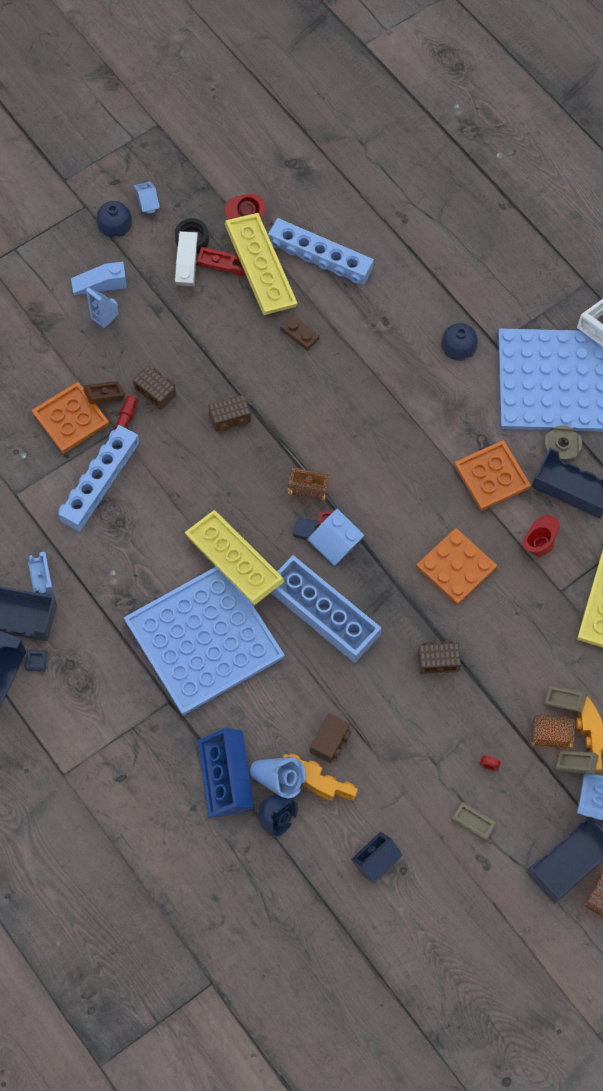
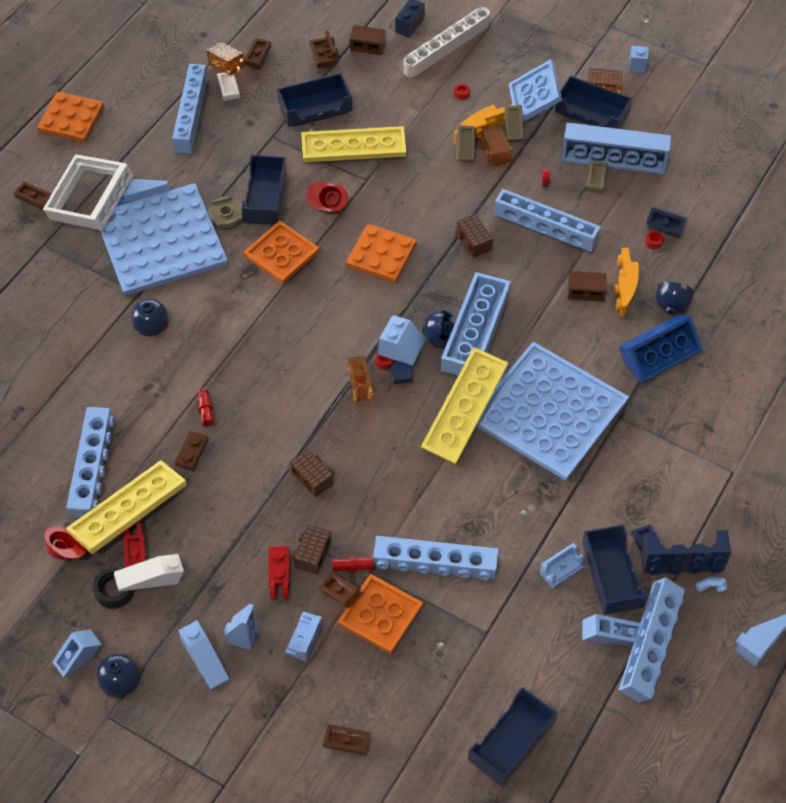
camera: 110 degrees left, 10 degrees down
(78, 355) = (304, 636): none -> light blue hinge
(148, 357) = (279, 570): none -> red hinge
(279, 775) = (645, 303): light blue cone -> none
(335, 573) = (438, 327): none -> dark blue cylinder
(337, 354) = (205, 408): none -> red pin
(362, 838) = (654, 240): none -> red tile
(426, 733) = (547, 220): none -> light blue brick
(493, 853) = (616, 147): none -> light blue brick

